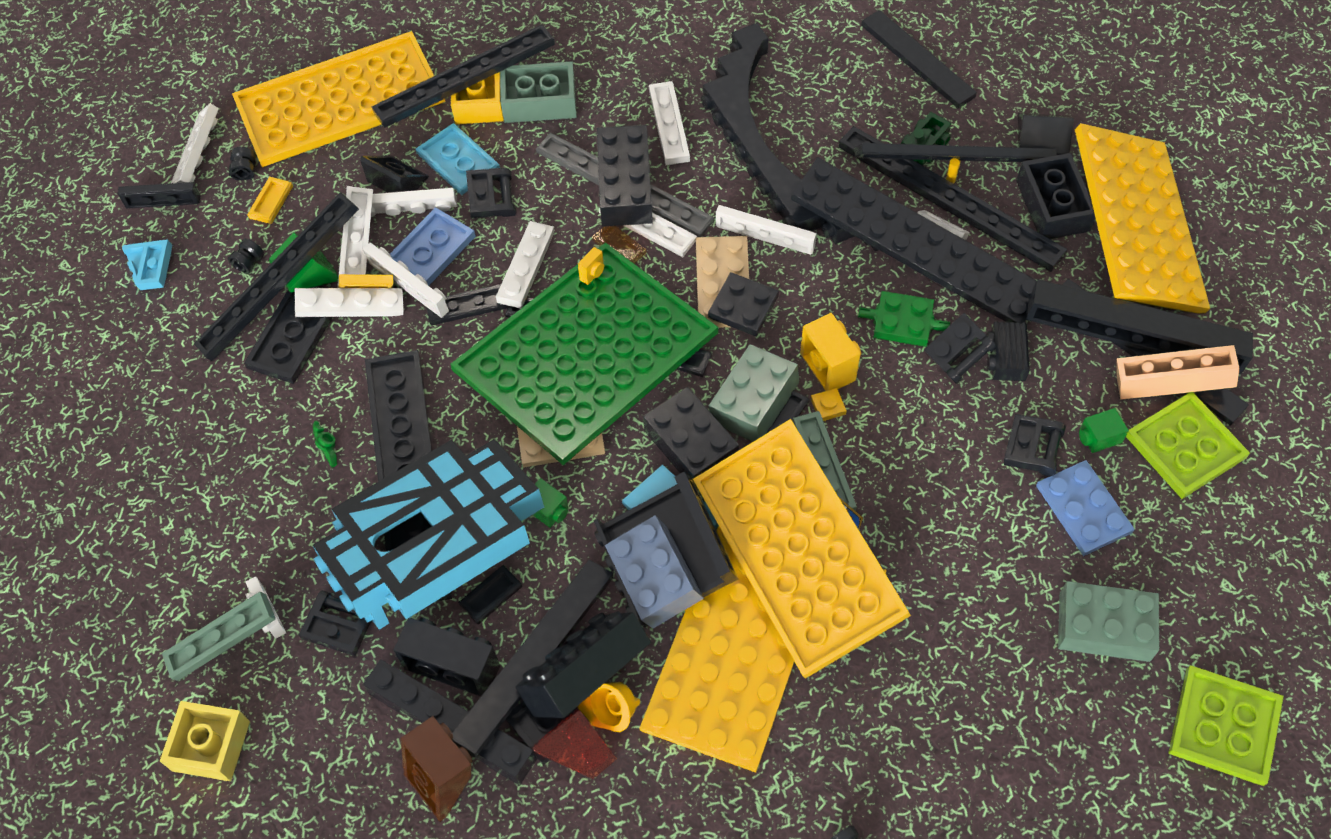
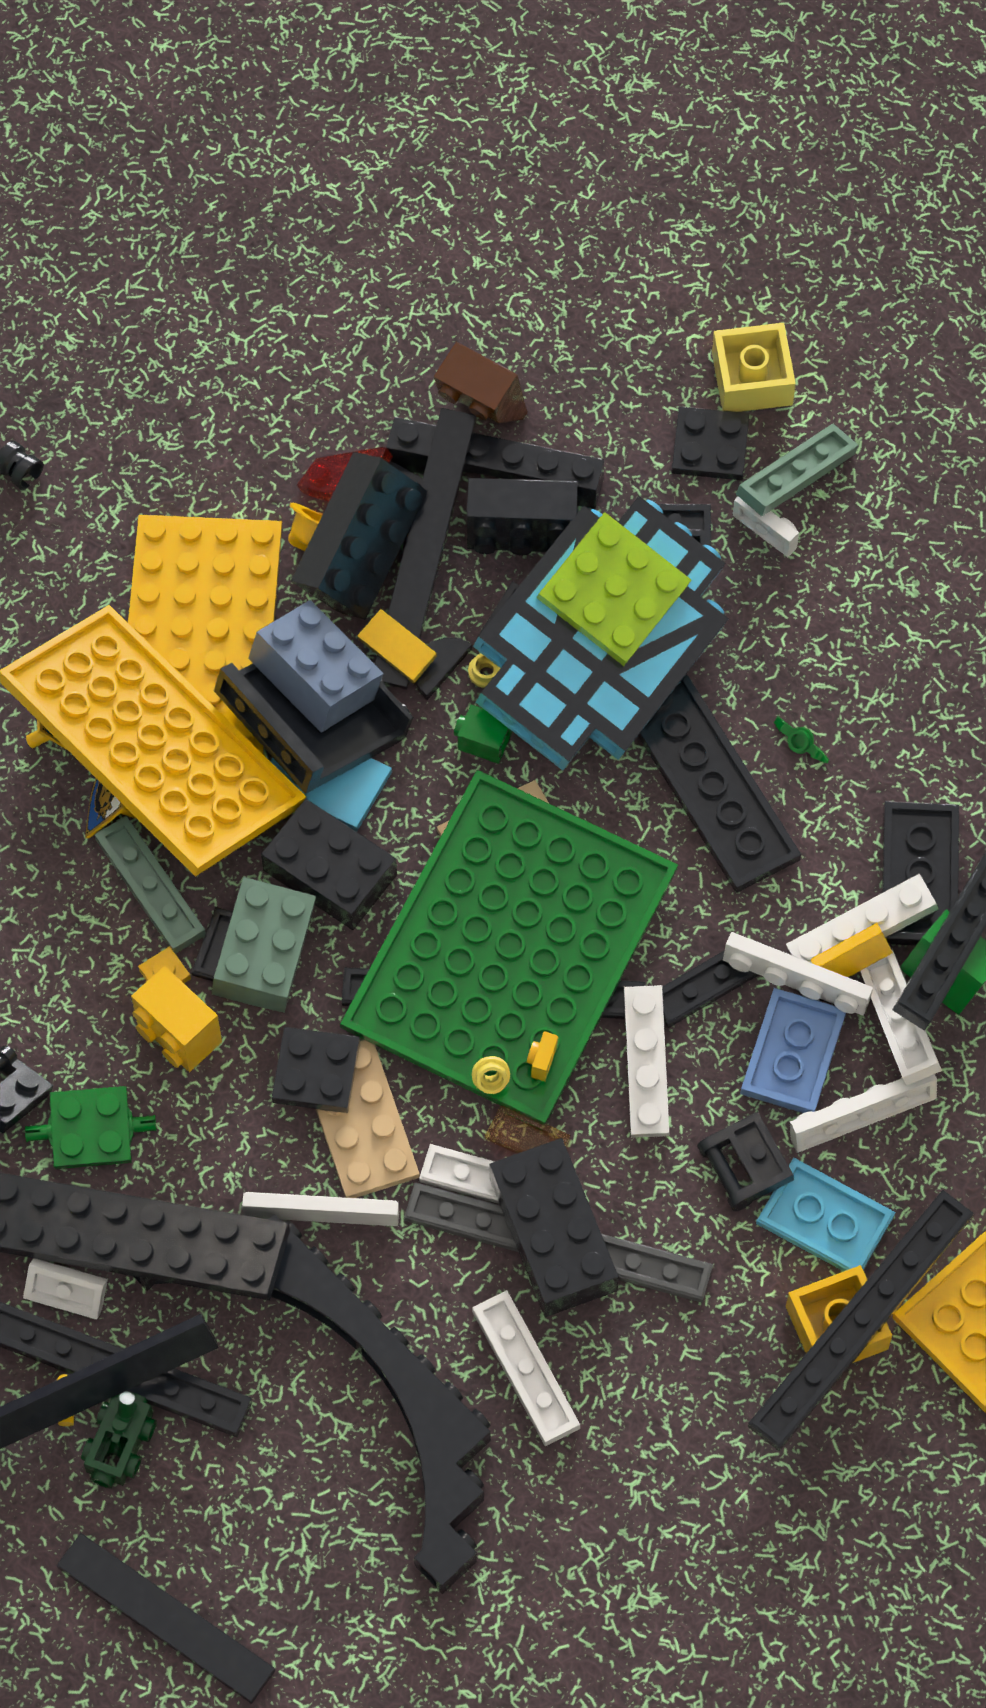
camera: 160 degrees right, 5 degrees up
(273, 696) = (710, 443): none -> black plate
(391, 174) = (902, 1153): black slope -> none
(405, 536) = (614, 588): none -> lime plate
(527, 565) = (476, 665): none -> light yellow plate
(538, 92) = (742, 1351): sand green brick -> none
(558, 574) = (449, 655): none -> black tile
(585, 583) = (397, 646): none -> yellow tile
(629, 265) = (494, 1083): none -> light yellow plate

